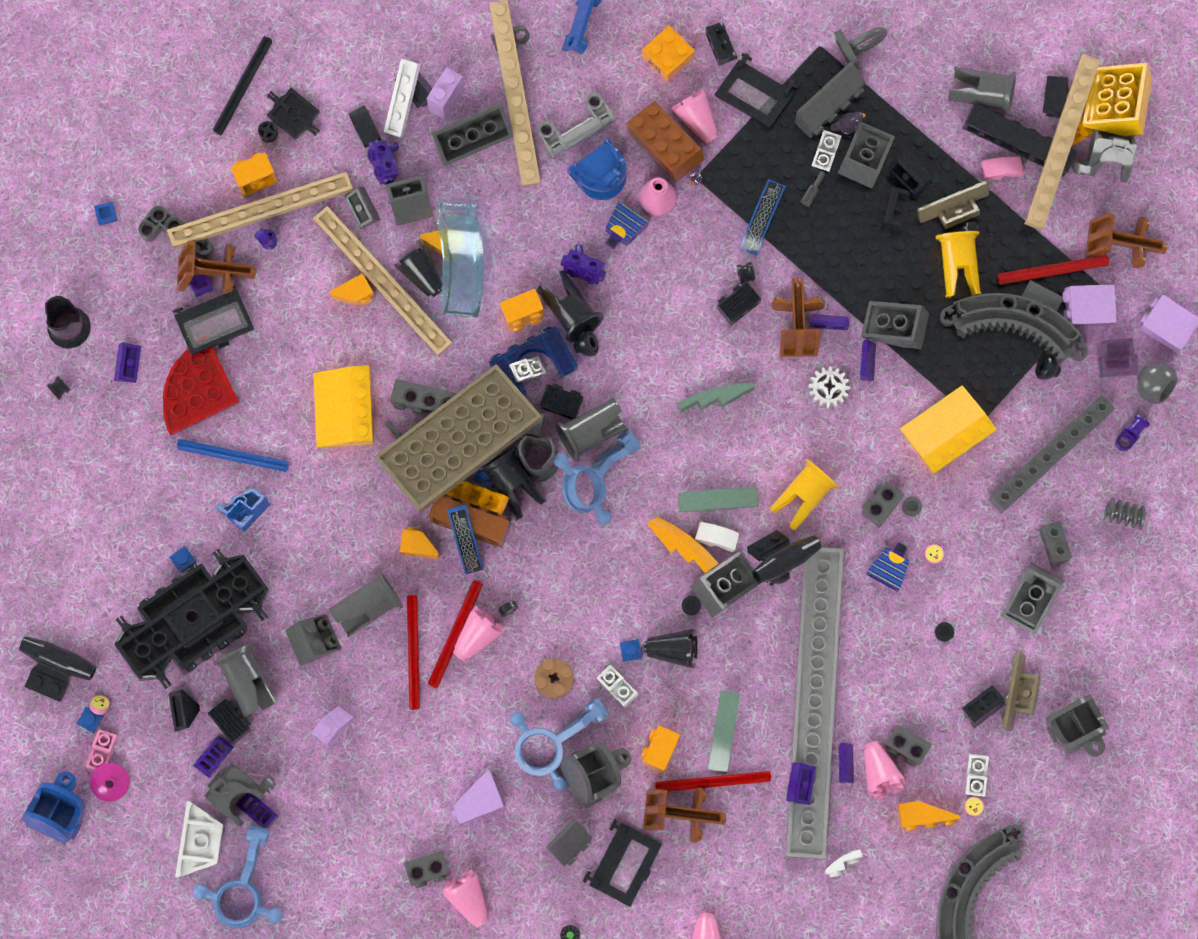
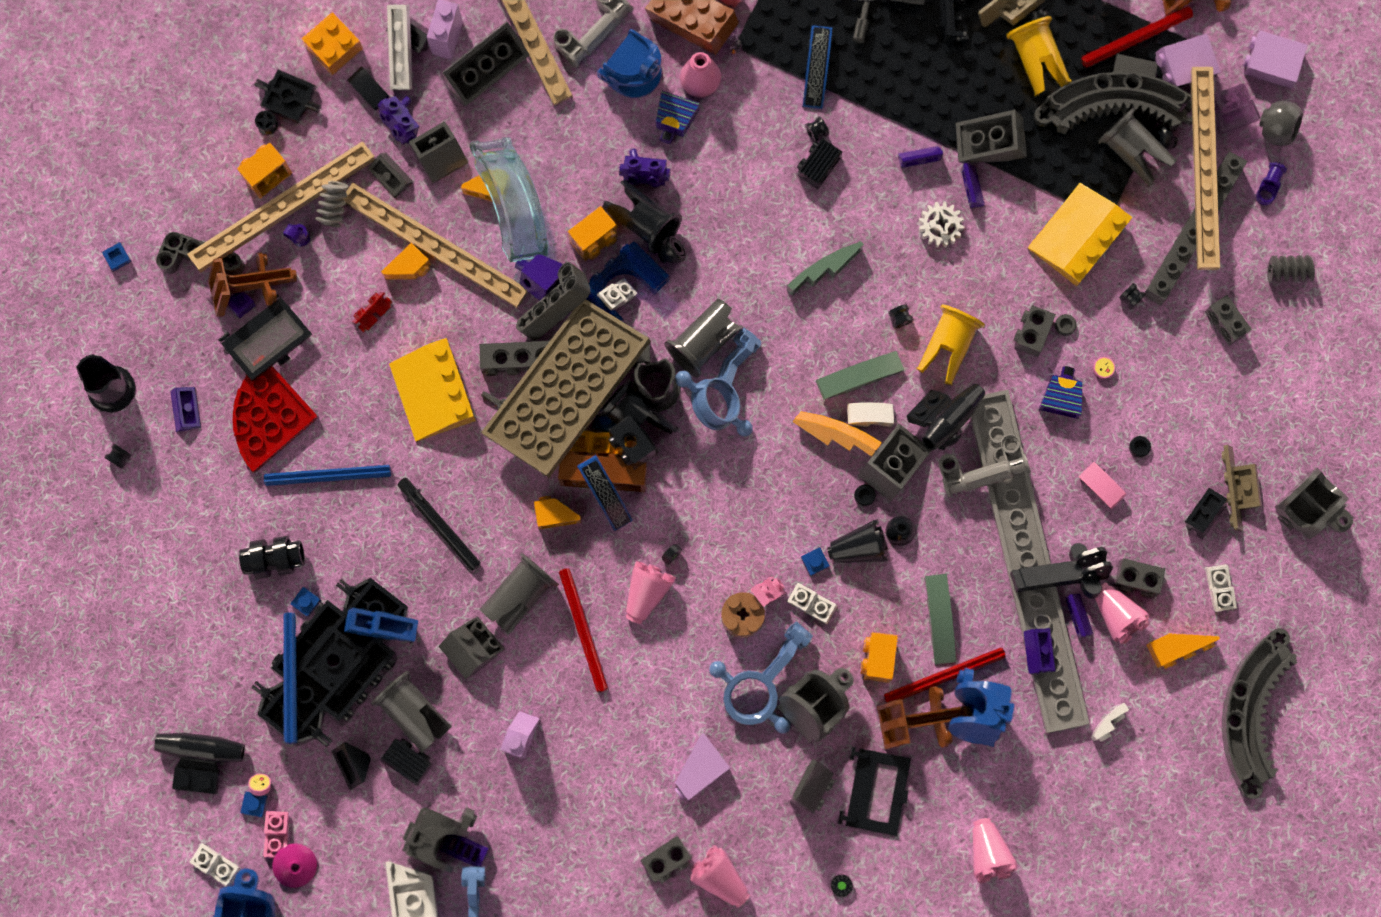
camera: 15 degrees left, 0 degrees up
(42, 762) = (215, 865): none -> white slope
(150, 621) = (290, 704): none -> blue axle
(173, 514) = (262, 558): none -> black piece
(198, 764) = (389, 809): dark purple slope -> none
(241, 598) = (381, 625): none -> blue slope
(242, 86) = (225, 82): black axle -> none
(249, 505) = (361, 522): blue slope -> none
(305, 220) = (332, 204): none -> light grey piece
(316, 525) = (438, 523): none -> black axle
(317, 318) = (366, 317): none -> red hinge
(344, 78) = (332, 43): none -> light orange brick
(421, 271) = (473, 223): black cone -> none
(459, 623) = (622, 597): red axle -> none
(467, 335) = (539, 275): none -> dark purple torso
(472, 363) = (556, 304): none -> dark grey beam
(499, 491) = (627, 431): none -> black brick
(561, 402) = (663, 319): black brick -> none
(582, 664) = (768, 591): none -> bright pink slope
(712, 645) = (900, 530): none -> black brick
(741, 821) = (989, 707): none -> blue animal
(769, 458) = (901, 316): none -> black wheel
(774, 616) = (1014, 463): none -> light grey piece
(798, 341) = (896, 183): dark orange piece -> none
(845, 723) = (1067, 572): none -> black piece
(900, 656) = (1102, 485): none -> bright pink slope
(973, 806) = (1227, 622): light yellow tile -> none
(977, 497) = (1132, 296): none -> black wheel
(1016, 359) = (1129, 139): none -> dark grey piece
(1033, 598) = (1222, 384): dark grey slope -> none
(1073, 404) = (1205, 168): none -> tan plate

